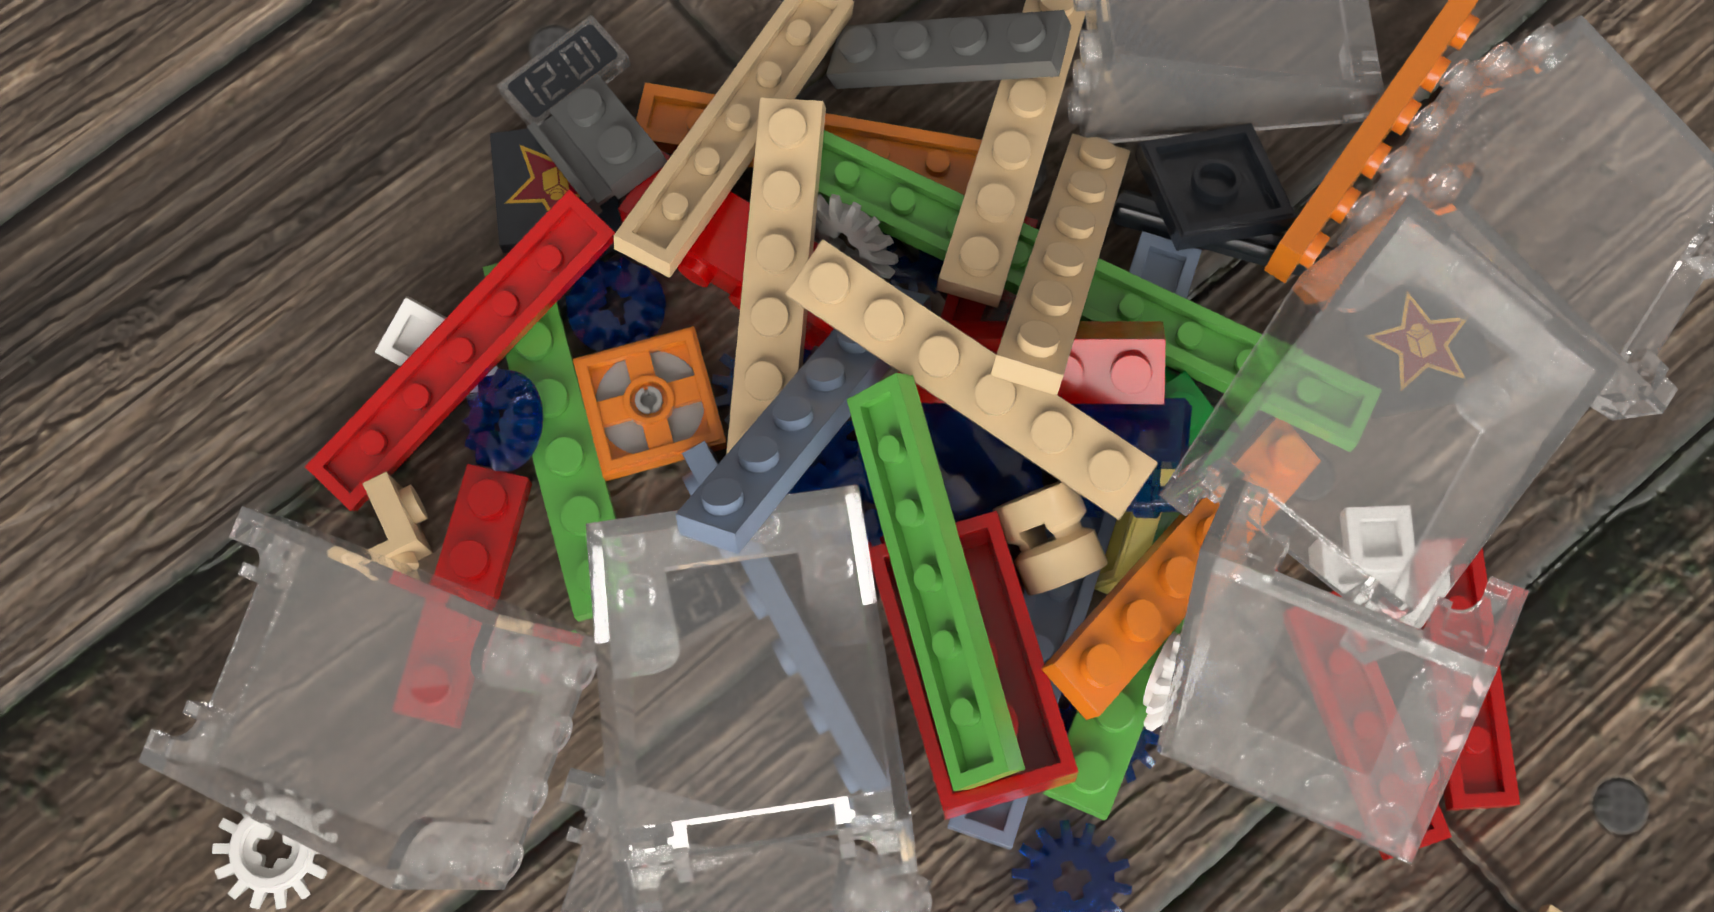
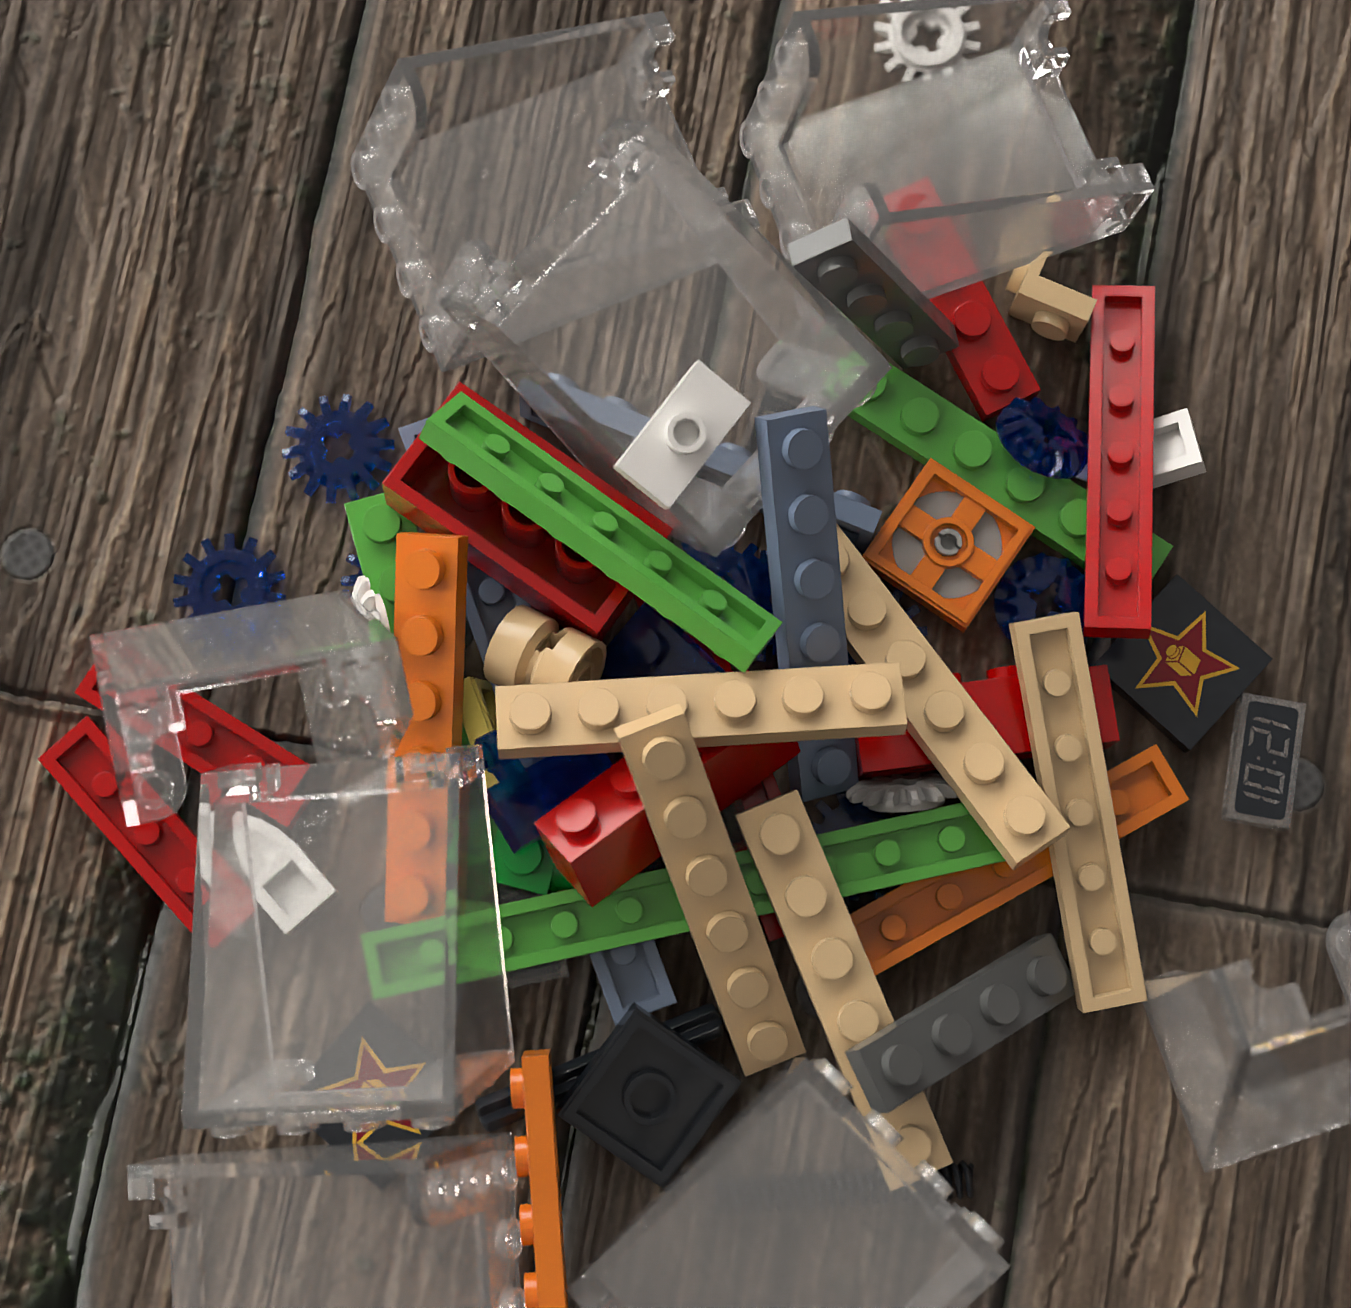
camera: 135 degrees right, 5 degrees up
(544, 603) = (873, 293): none -> dark grey plate
(597, 144) = (1173, 705): dark grey plate -> none
(810, 584) = (681, 435): none -> white plate
(1268, 856) = (238, 565): none -> clear blue gear

